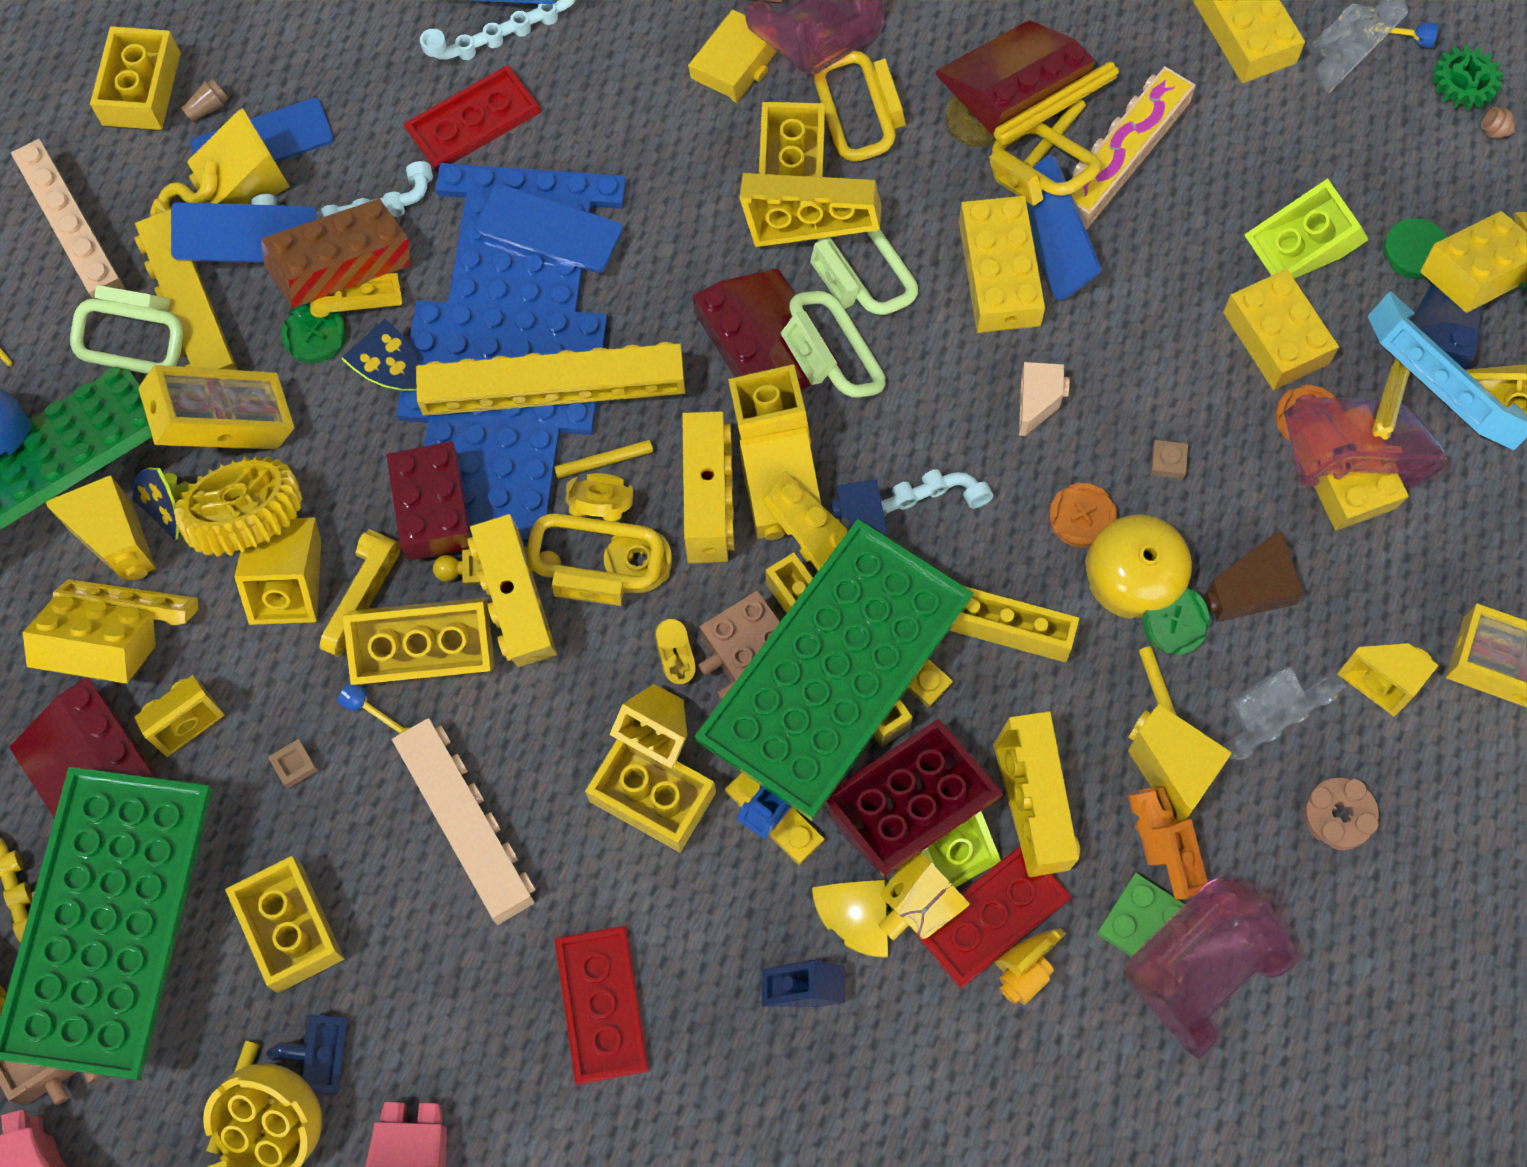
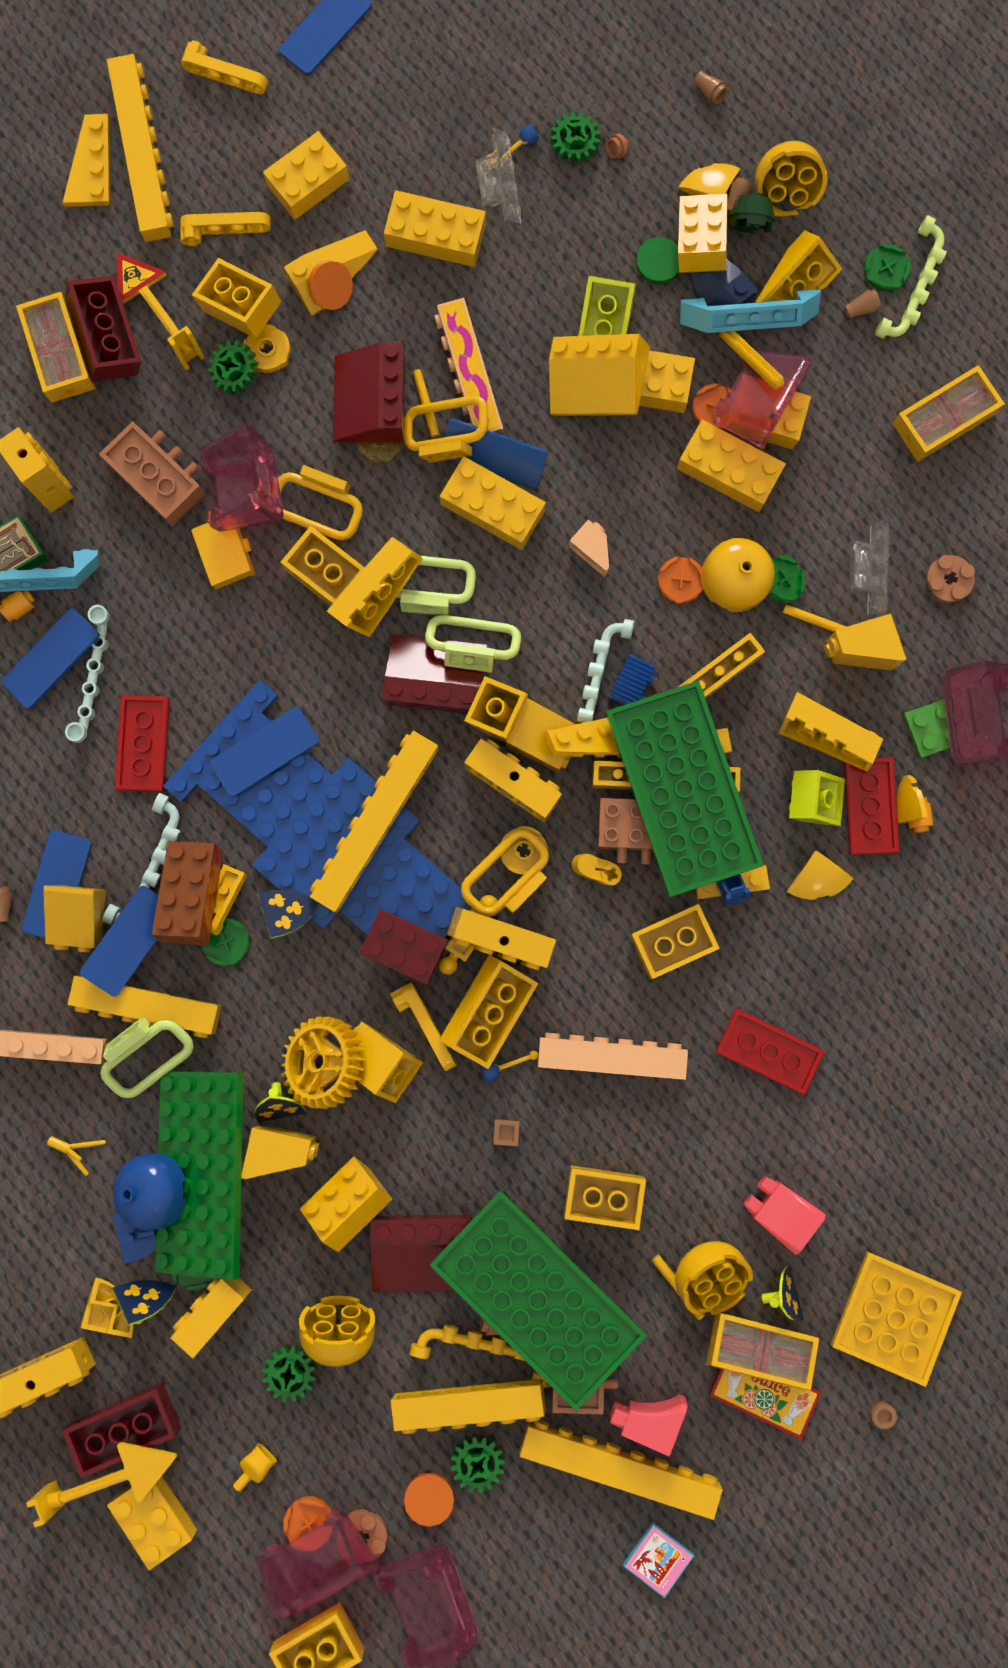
camera: 55 degrees left, 15 degrees up
(165, 607) = (350, 1145): yellow plate -> none
(178, 715) = (428, 1181): yellow slope -> none
(208, 187) = (61, 979): yellow animal -> none
(215, 408) = (250, 1036): yellow brick -> none
(320, 1053) = (691, 1225): dark blue plate -> none
(599, 496) = (470, 857): yellow plate -> none
(603, 459) = (442, 826): yellow bar -> none
(653, 724) = (642, 912): yellow slope -> none
(803, 985) = (839, 935): dark blue slope -> none
(860, 502) = (594, 703): dark blue slope -> none
(910, 798) = (787, 802): dark red slope -> none
(920, 899) = (841, 839): yellow torso -> none
(926, 537) = (632, 681): none -> blue brick
(1056, 103) = (410, 387): yellow axle -> none
(1168, 840) = (903, 683): orange plate -> none
(1169, 459) = (683, 505): medium nougat plate -> none
(1231, 261) = (597, 374): none -> yellow slope
(1255, 472) = (730, 465): none -> yellow brick
(1256, 582) = (793, 517): reddish brown slope -> none
(1388, 673) = (904, 491): yellow slope -> none

